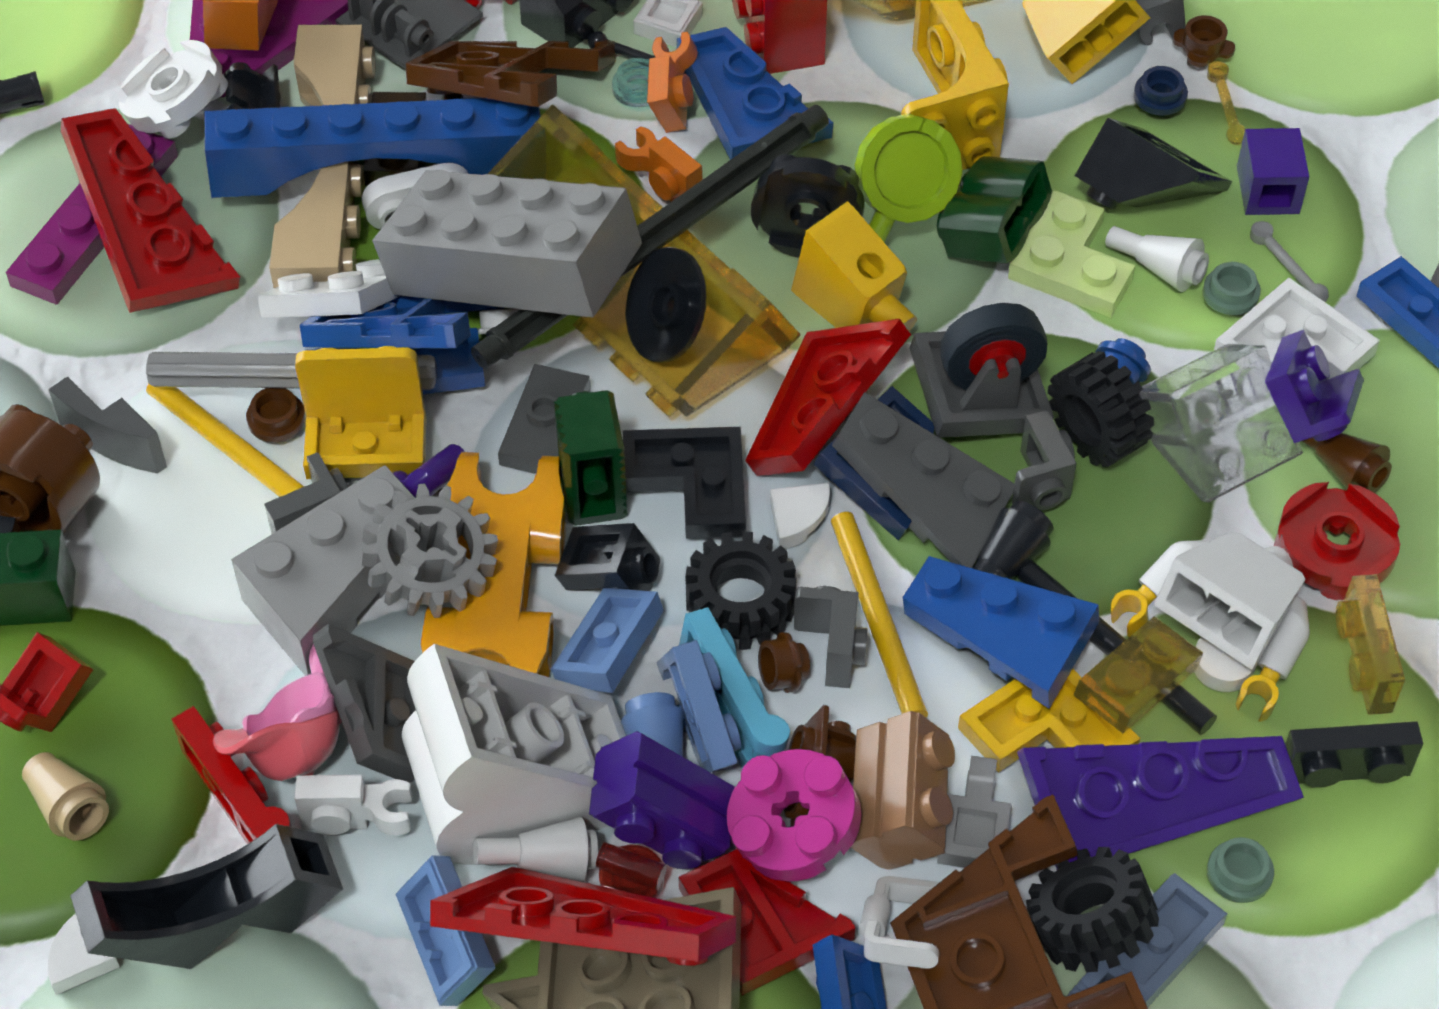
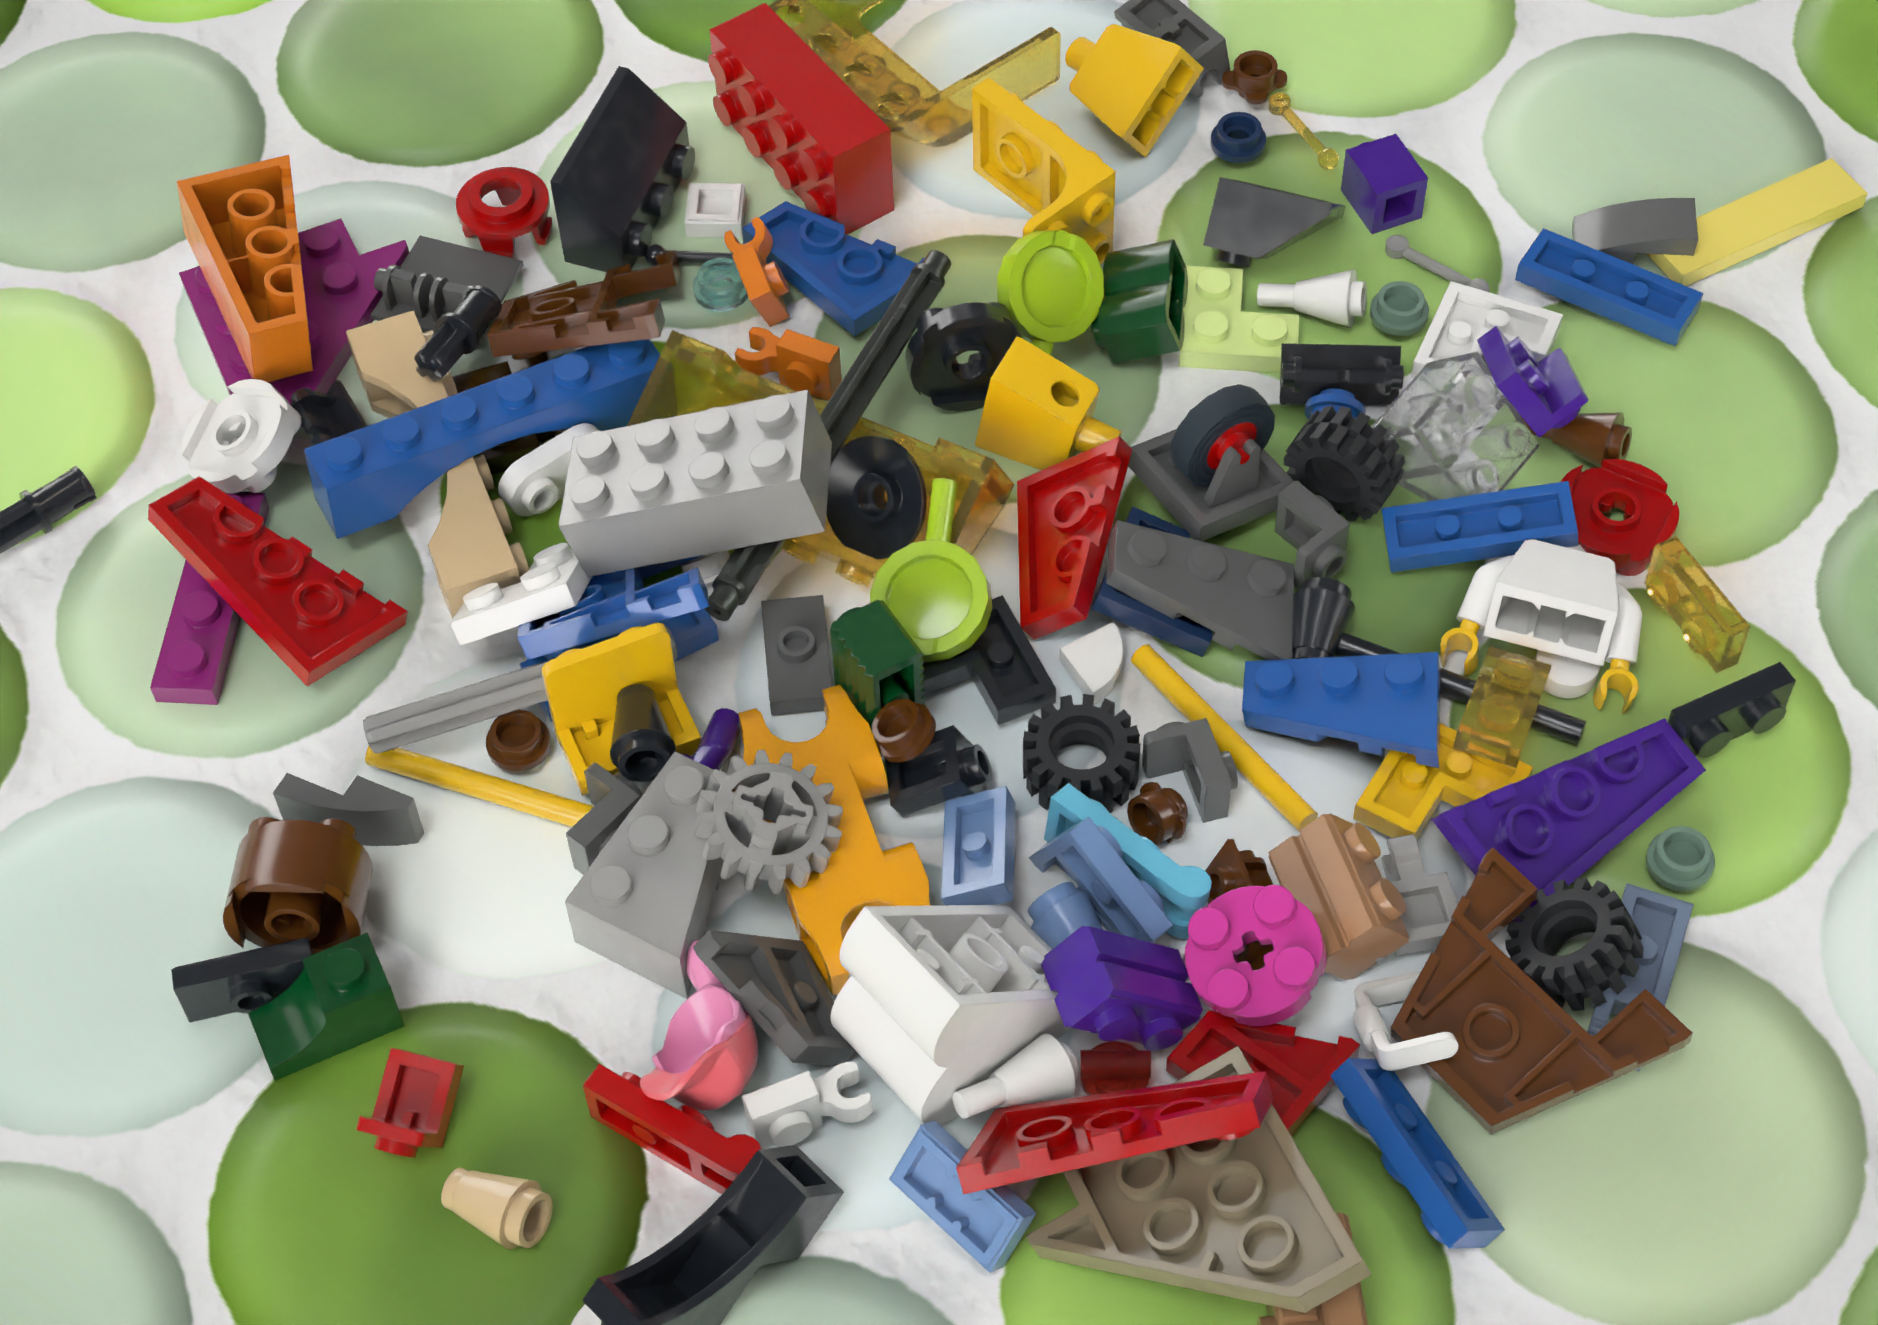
camera: 20 degrees left, 0 degrees up
(365, 440) = (640, 735): none -> black cone
(385, 54) = (457, 332): none -> black axle
(589, 512) = (903, 730): none -> reddish brown plate
(671, 401) = (936, 585): none -> lime piece
(1164, 333) = (1364, 370): none -> black hinge
(1200, 505) = (1478, 526): none -> blue plate

